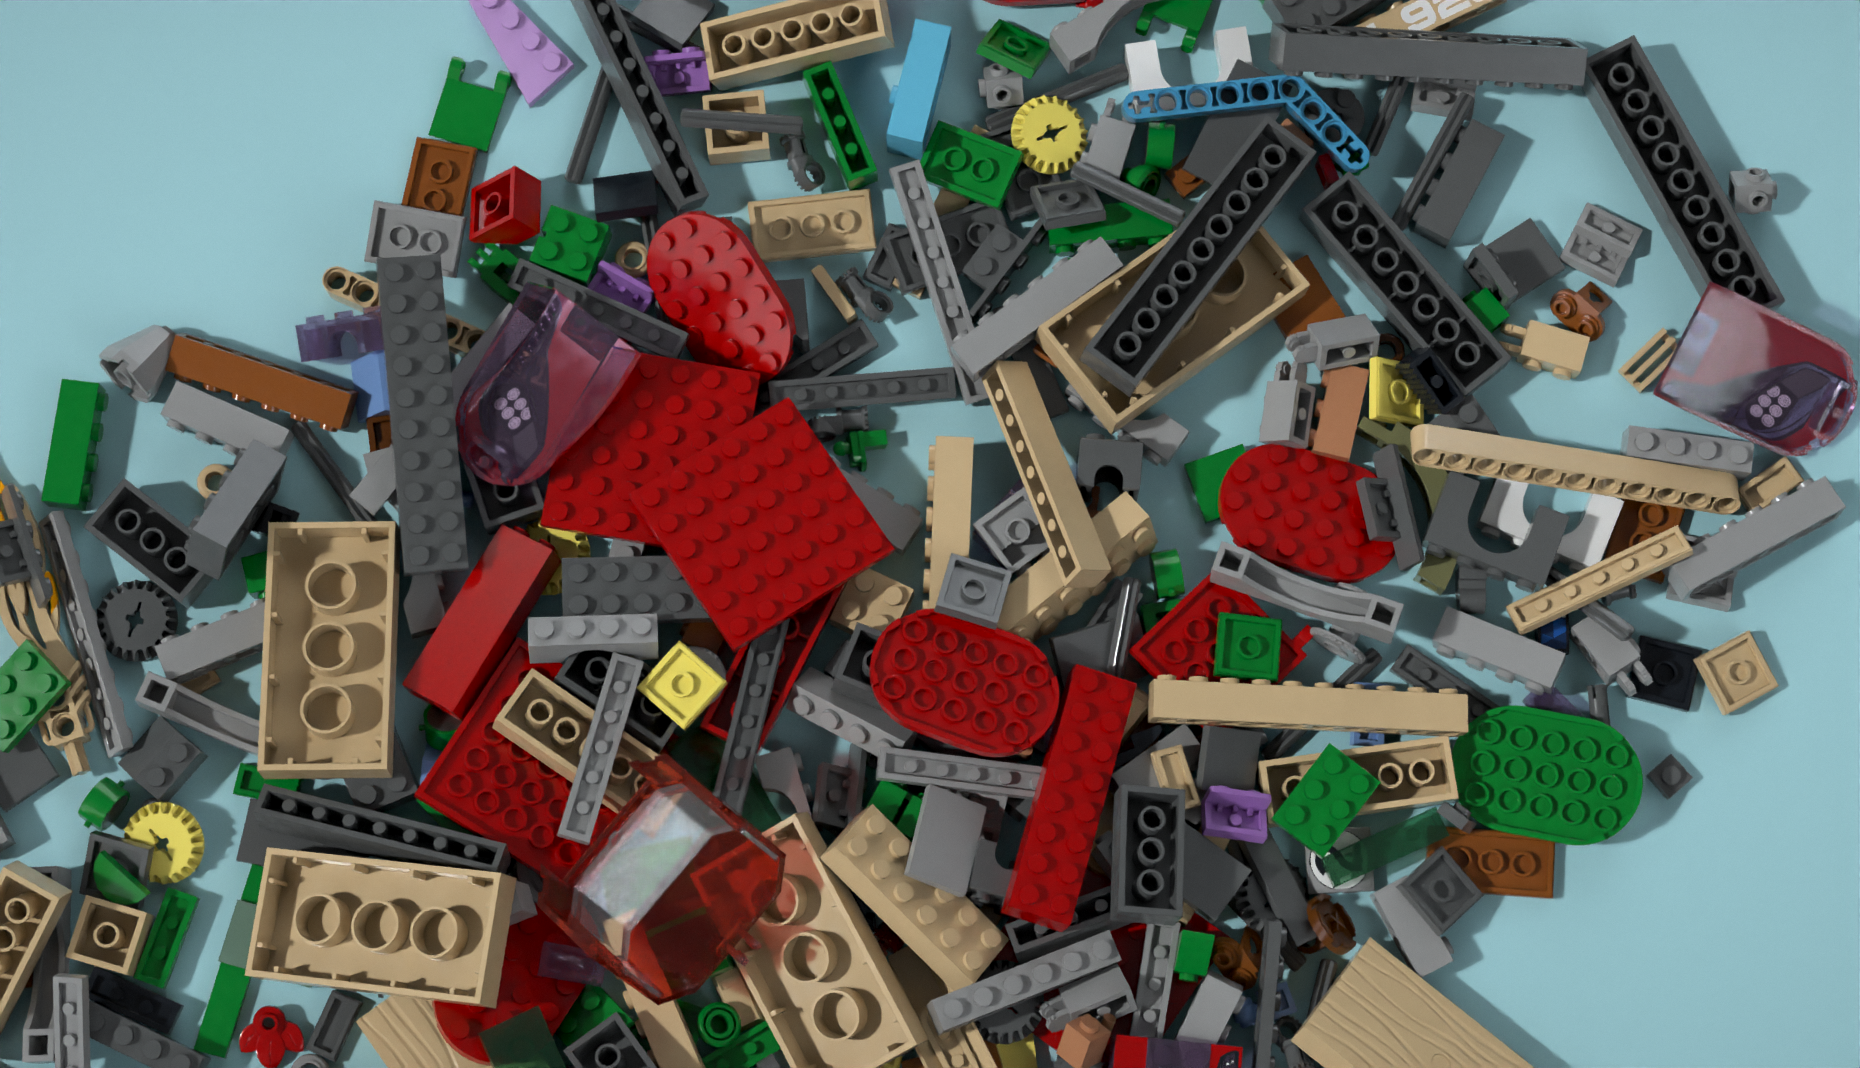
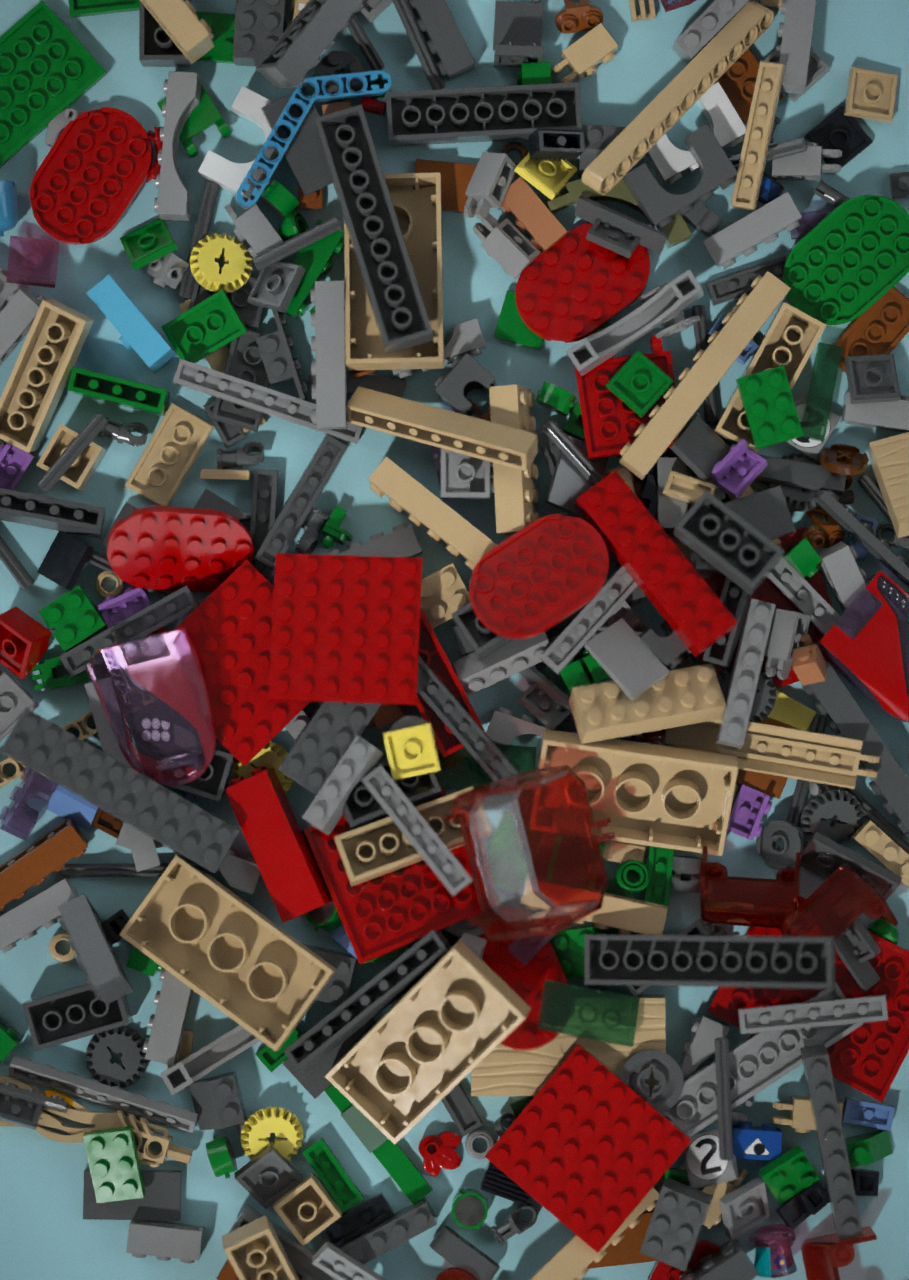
camera: 50 degrees left, 10 degrees up
(117, 882) = (277, 1182): green tile -> none
(973, 591) = (485, 529): dark grey plate -> none
(1458, 816) = (834, 333): dark grey plate -> none

